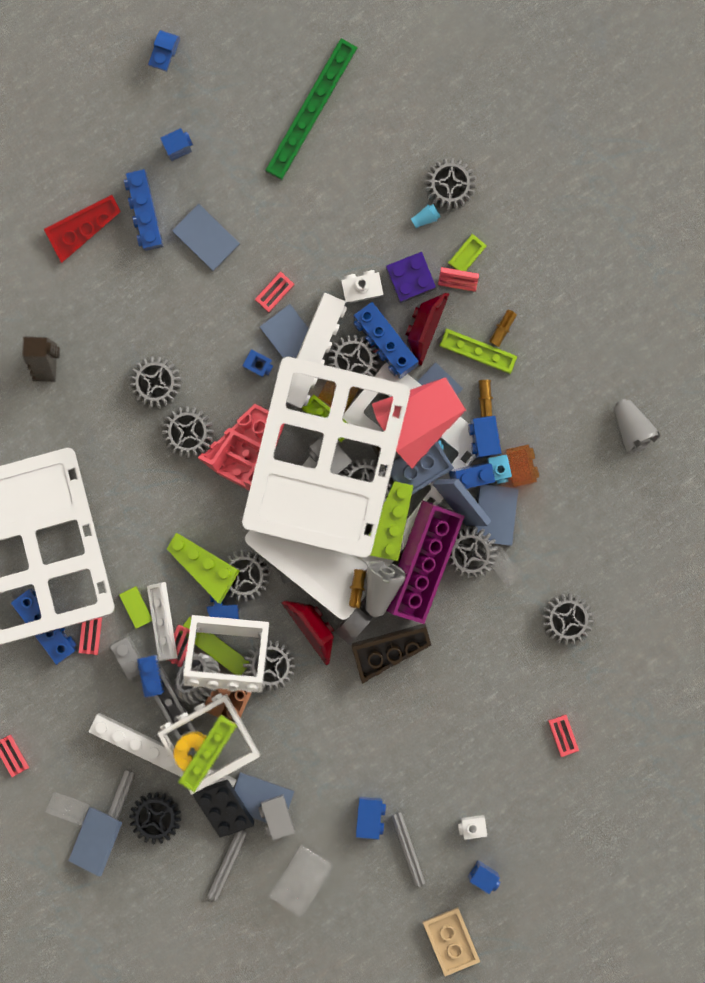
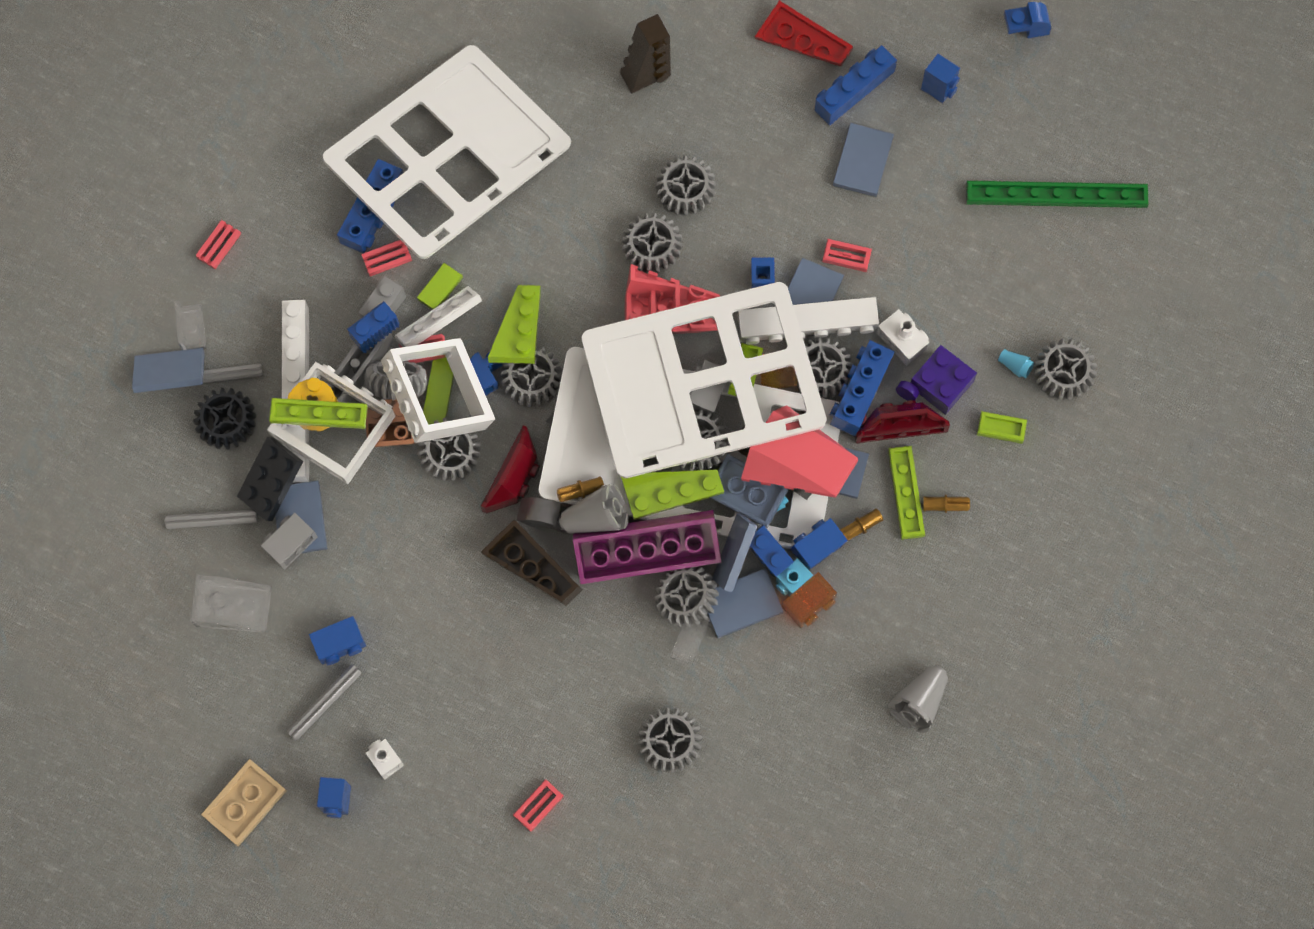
camera: 65 degrees right, 15 degrees down
(404, 307) = (907, 390): none -> dark purple tile
(458, 279) = (967, 431): coral tile -> none

